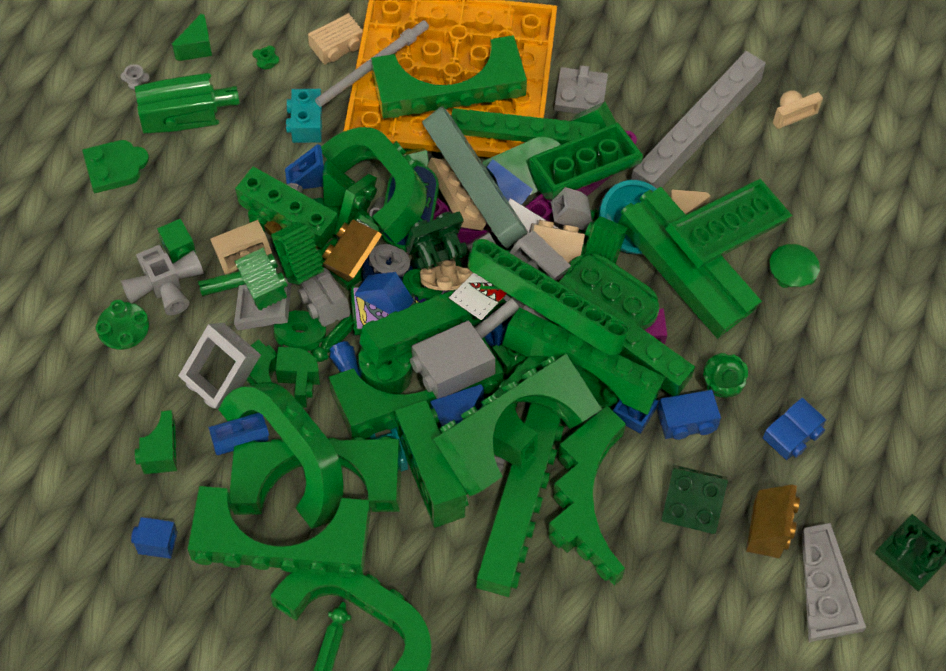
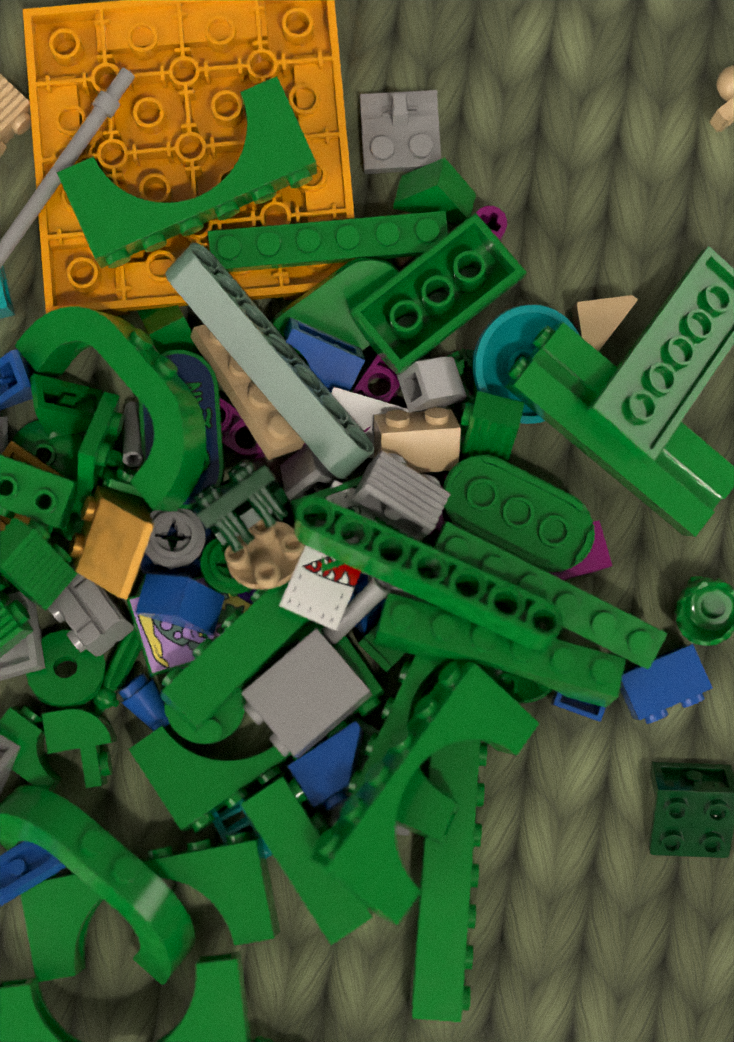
camera: 10 degrees left, 25 degrees up
(578, 523) = (524, 842): green arch -> none
(700, 121) = (598, 158): light grey brick -> none

